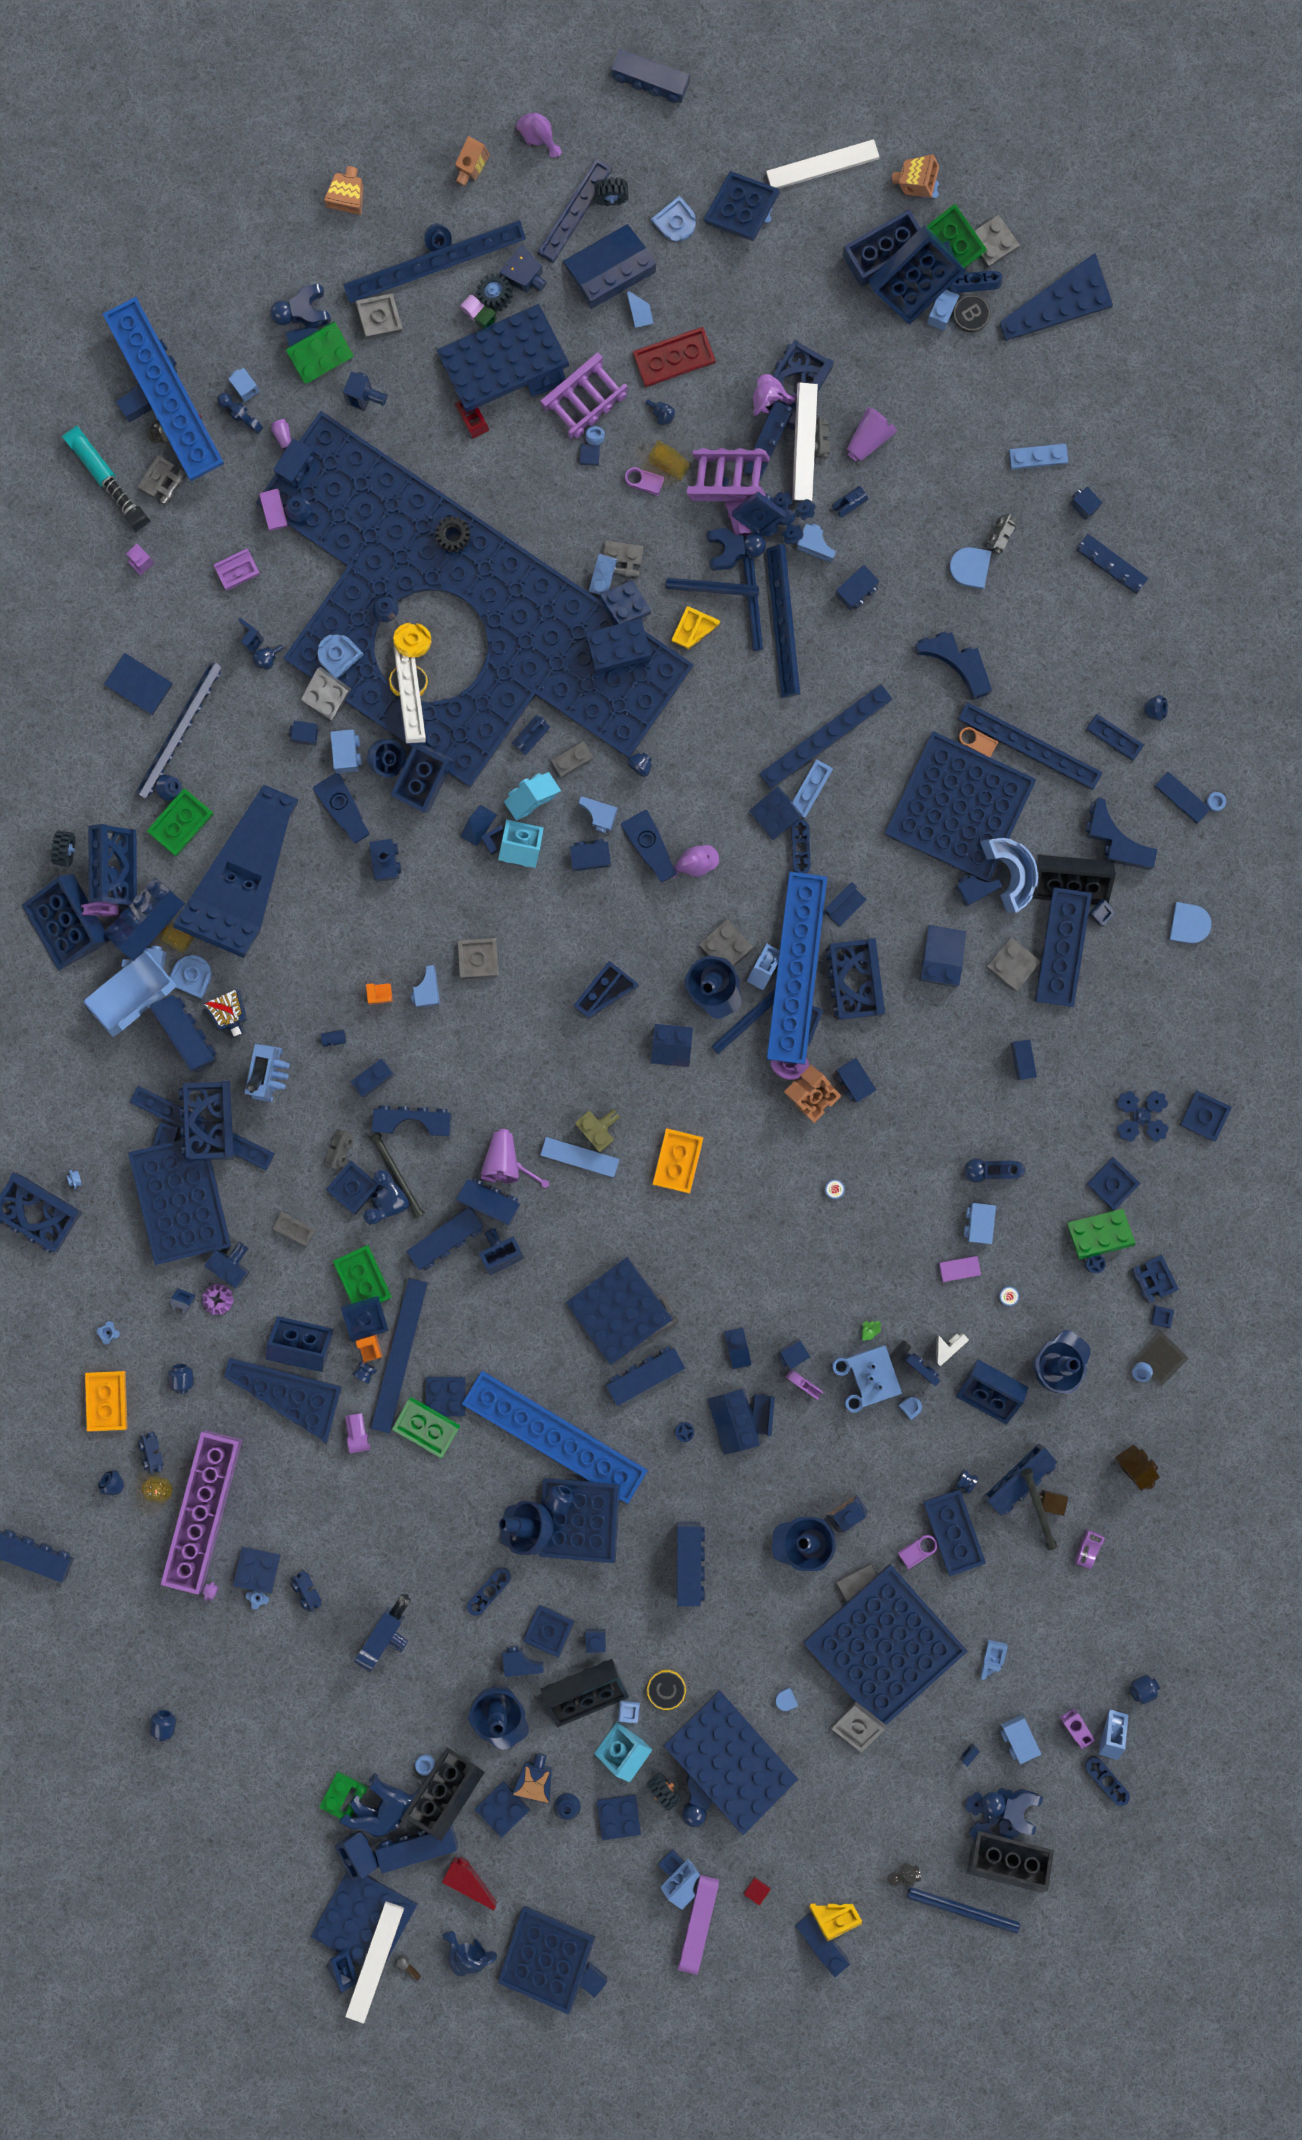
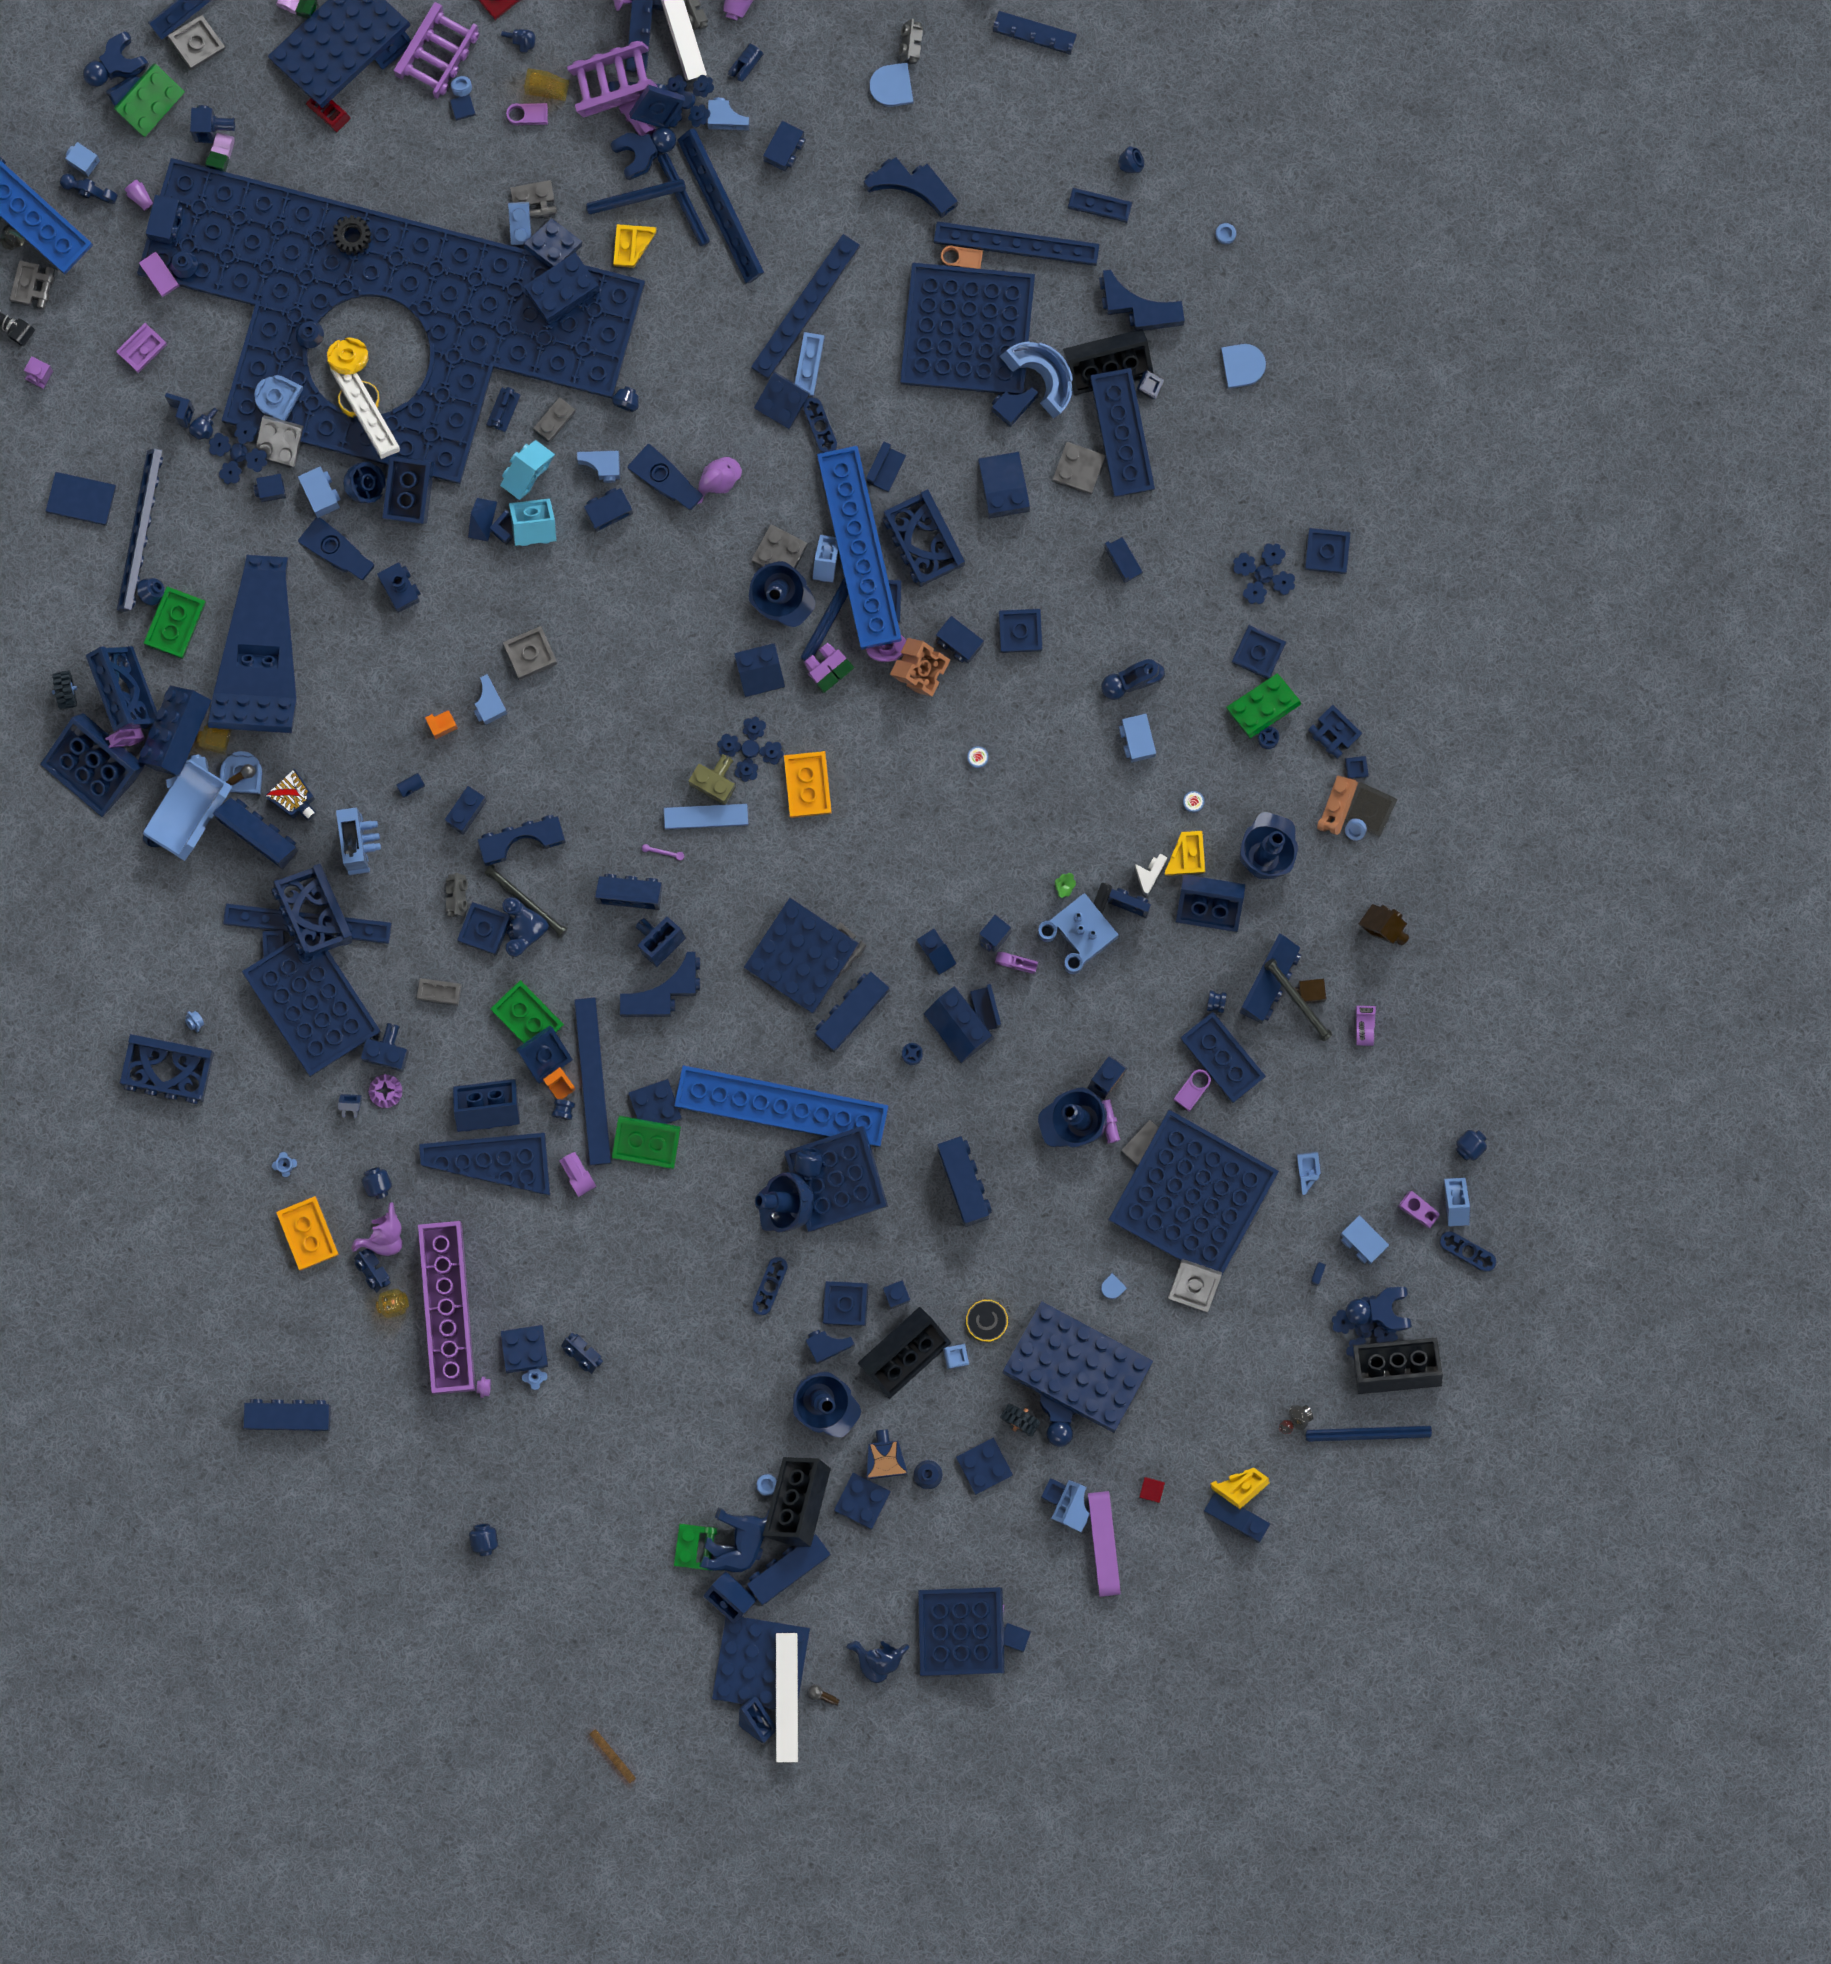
camera: 20 degrees left, 5 degrees down
(111, 1483) = (343, 1314): dark blue cone -> none
(171, 1429) = (385, 1237): none -> medium lavender piece
(196, 977) = (247, 771): none -> piece
(207, 1954) = (612, 1756): none -> clear orange bar
(288, 691) = (238, 452): none -> dark blue plant
(365, 420) = (220, 152): none -> leg
(384, 1635) = (678, 1360): dark blue piece -> none
(445, 1238) = (597, 945): dark blue brick -> none
(466, 1881) = (849, 1583): dark red slope -> none
(481, 1306) = (658, 1000): none -> dark blue arch
(501, 1159) = (626, 846): medium lavender cone -> none
(605, 990) = (671, 638): dark blue wedge -> none
(623, 1752) = (965, 1397): medium azure slope -> none
(639, 1111) = (750, 749): none -> dark blue plant
(724, 1067) = (821, 673): none -> medium lavender hips
(833, 1565) = (1110, 1128): none -> medium lavender pin
(911, 1091) = (1020, 630): none -> dark blue plate
(911, 1407) = (1134, 948): medium blue tile -> none
(959, 1268) = (1133, 792): medium lavender tile -> none
(987, 1342) = (1187, 855): none -> yellow wing
(1134, 1345) = (1337, 805): none -> nougat plate
(1182, 797) = (1190, 241): dark blue tile -> none

